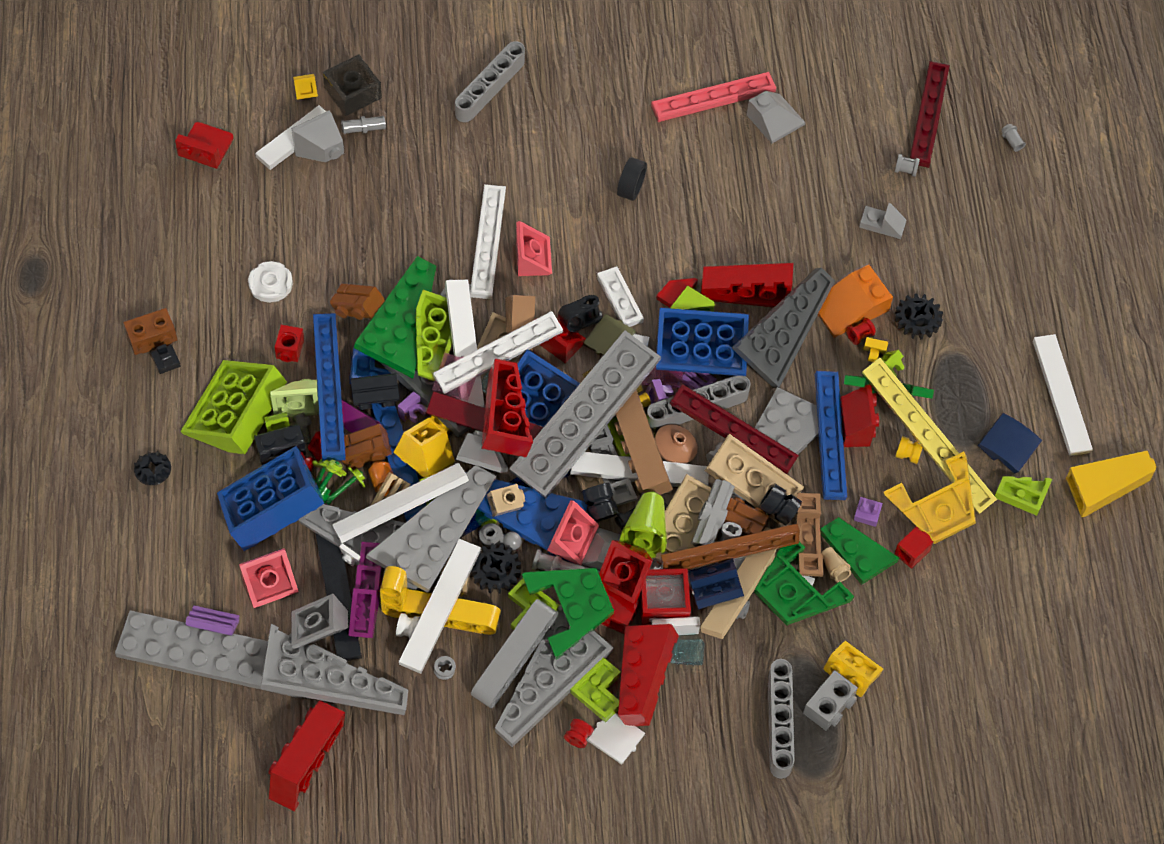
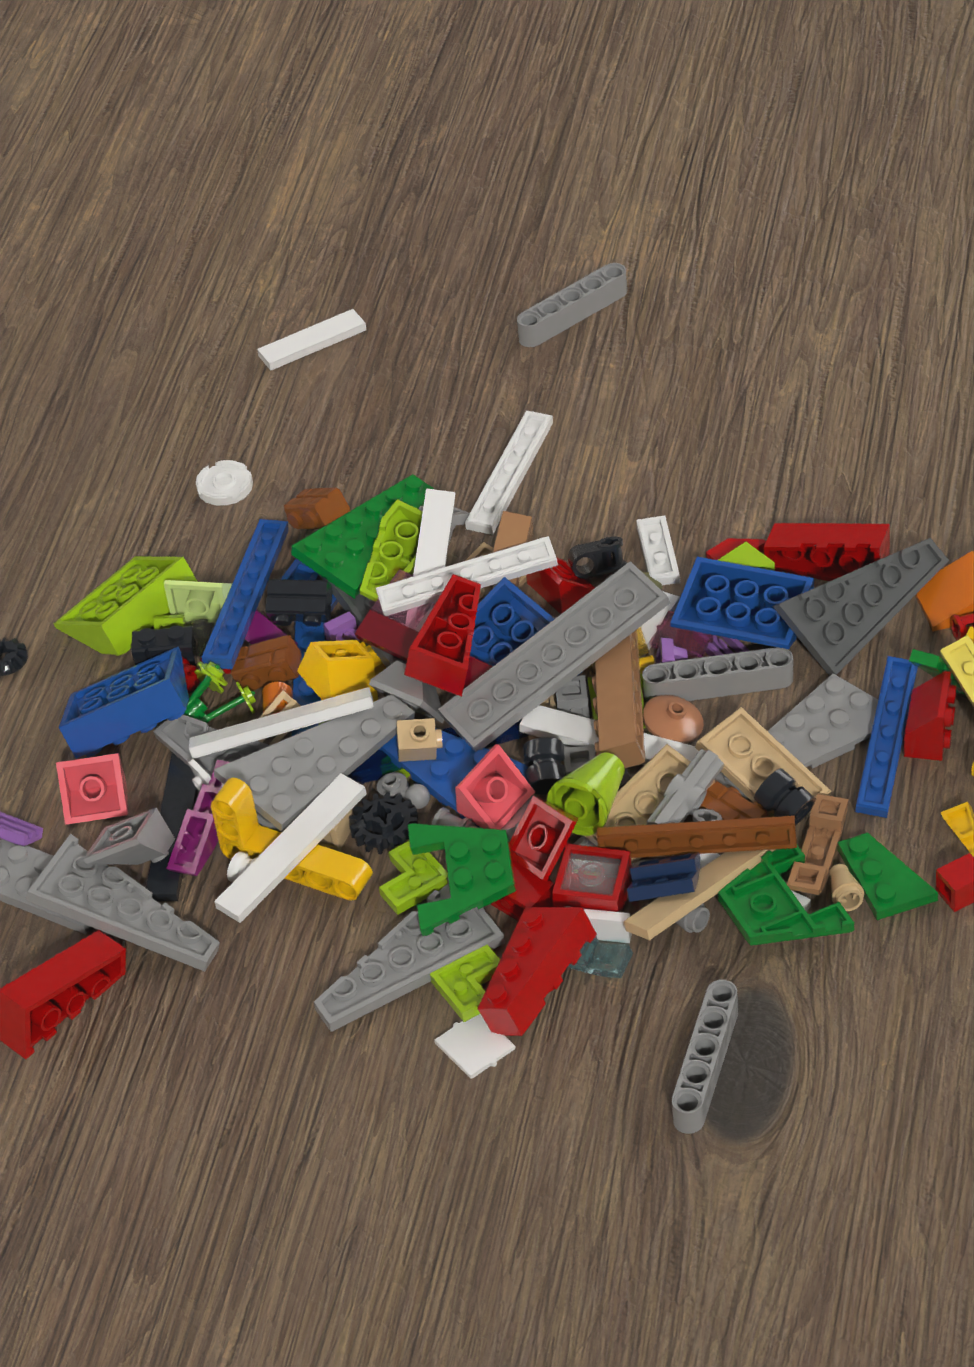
camera: 25 degrees right, 15 degrees down
(150, 331) = (58, 513): dark orange brick -> none
(165, 358) = (66, 545): black tile -> none
(204, 144) = (198, 336): red bracket -> none
(286, 336) = (219, 546): red brick -> none
(305, 86) = (343, 287): yellow tile -> none
(318, 139) = (333, 337): light grey slope -> none
(352, 85) = (398, 289): clear smoke brick -> none
(363, 124) = (399, 334): light grey pin -> none
(441, 661) = (277, 918): light grey bush -> none
(514, 653) = (369, 919): light grey beam -> none
(532, 251) = (558, 485): coral slope -> none
(578, 733) = (422, 1027): red wheel -> none
(632, 178) = (713, 420): black tyre -> none
(712, 96) = (858, 351): coral tile -> none
(726, 423) = (736, 693): dark red tile -> none
(773, 115) = (929, 376): light grey slope -> none
(828, 699) = (782, 1046): light grey brick -> none
(853, 666) = (827, 1013): yellow bracket -> none
(868, 511) = (912, 833): medium lavender tile -> none

